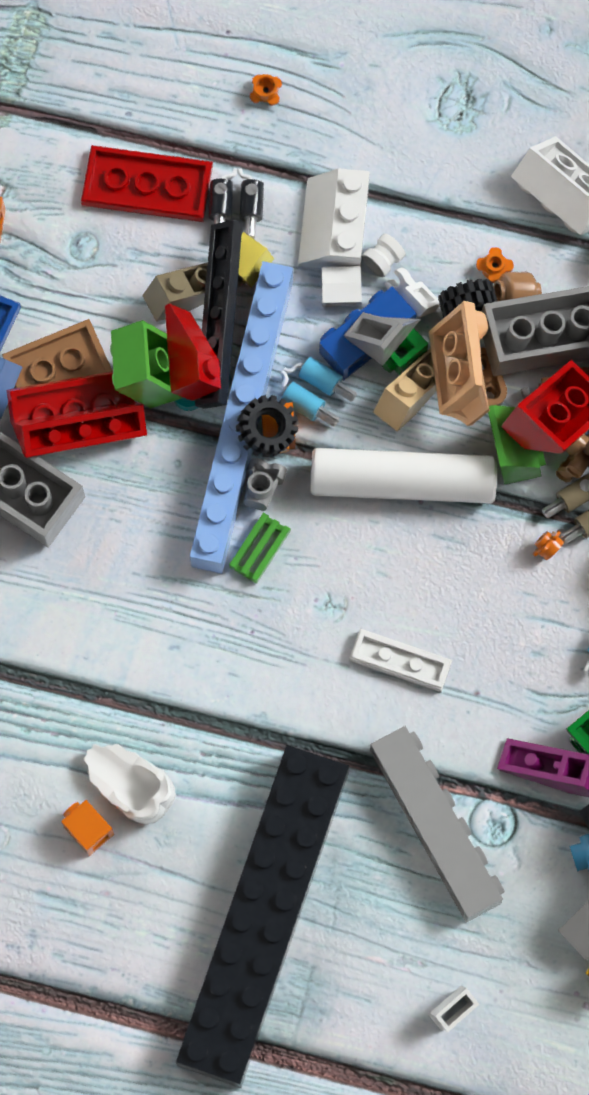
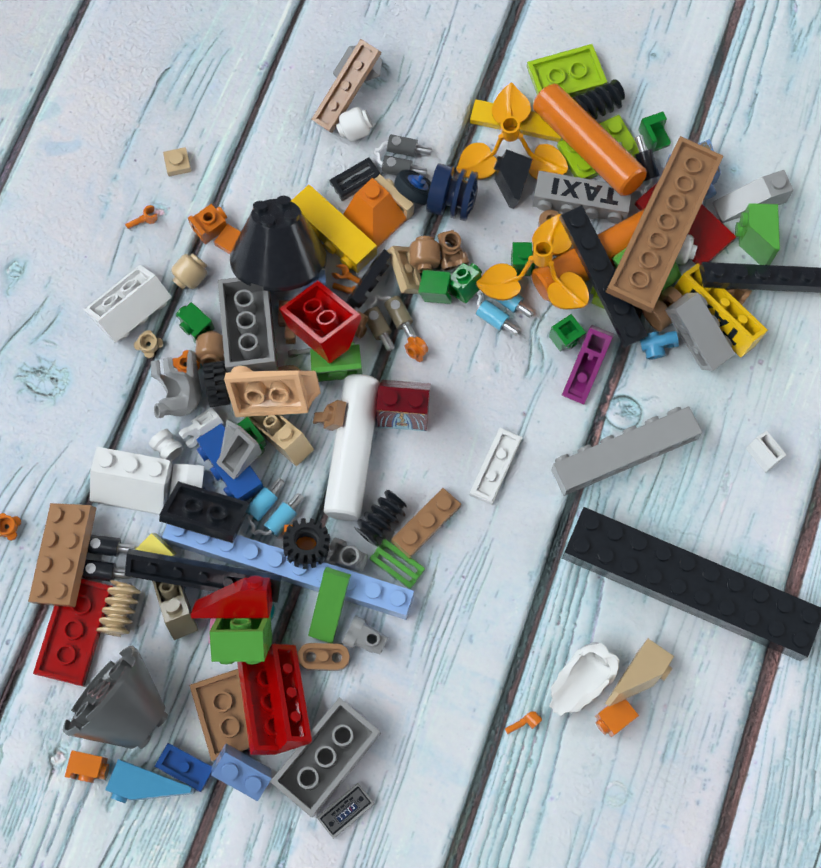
camera: 85 degrees left, 0 degrees up
(54, 239) = (119, 705): none -> dark grey cone
(78, 726) = (531, 719): none -> orange hand
(135, 471) = (324, 654): none -> medium nougat plate
(141, 853) = (643, 672): none -> tan slope
(164, 508) = (358, 635): none -> light grey plate
(173, 228) = (119, 609): none -> tan piece
(195, 465) = (329, 605): none -> bright green tile
(235, 155) = (62, 555): none -> medium nougat plate
(296, 304) = (204, 512): none -> black plate
(312, 520) = (381, 517): none -> black piece
(315, 577) = (426, 523): none -> medium nougat plate
(440, 443) = (332, 416): none -> medium nougat plate
(454, 265) = (181, 388): none -> light grey piece
(470, 531) = (403, 405): none -> dark red slope
(521, 210) = (143, 339): none -> tan plate
(552, 267) = (194, 321): none -> green brick

